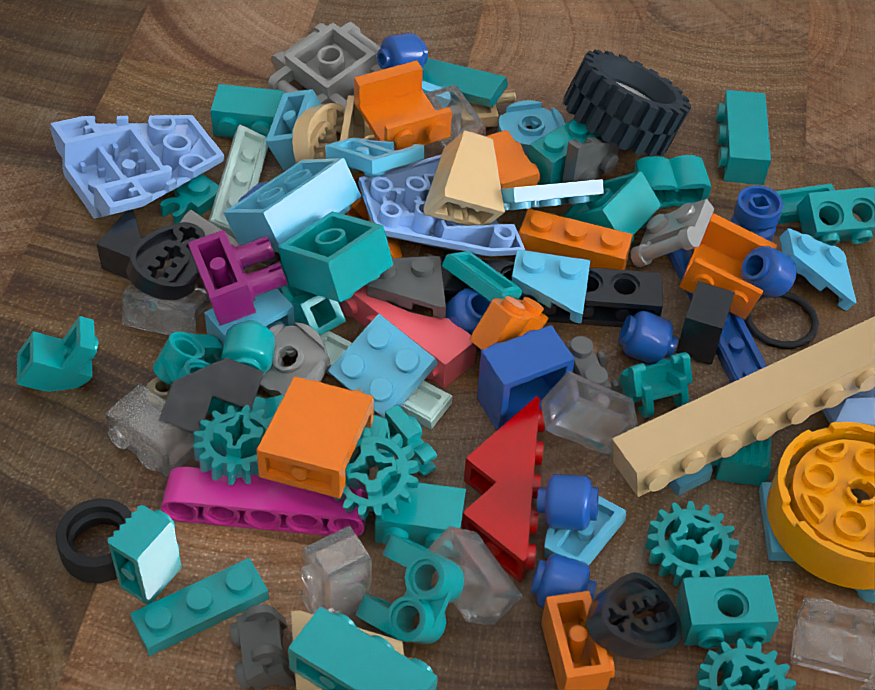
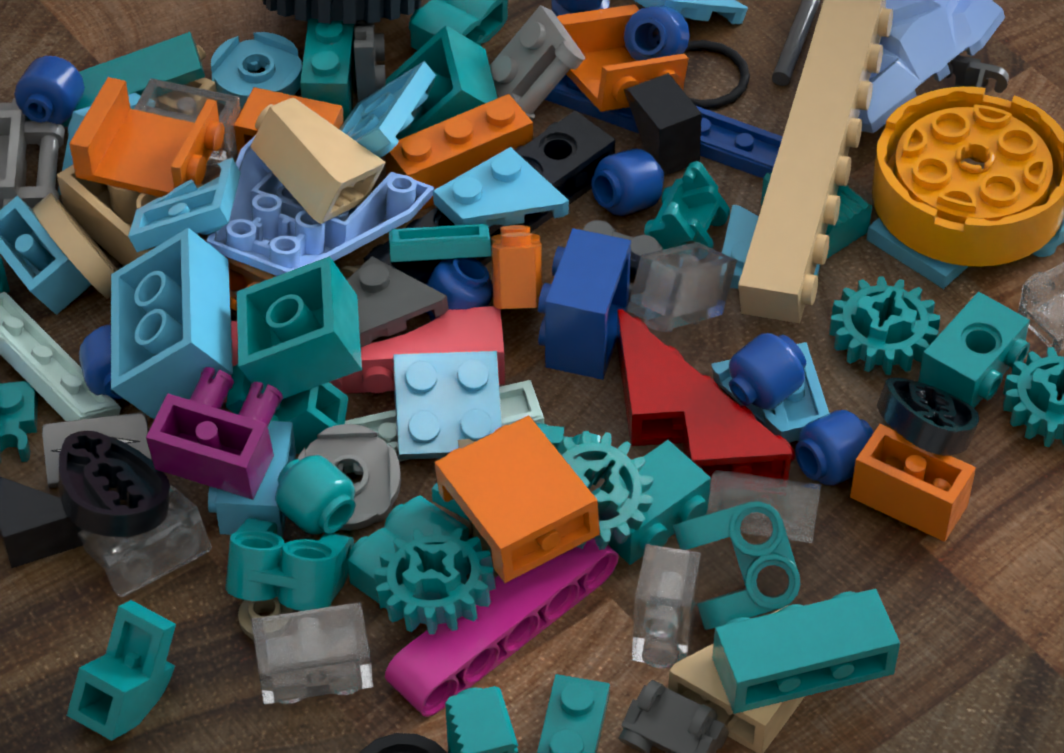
camera: 45 degrees left, 0 degrees up
(192, 394) = (336, 573): black tile -> none

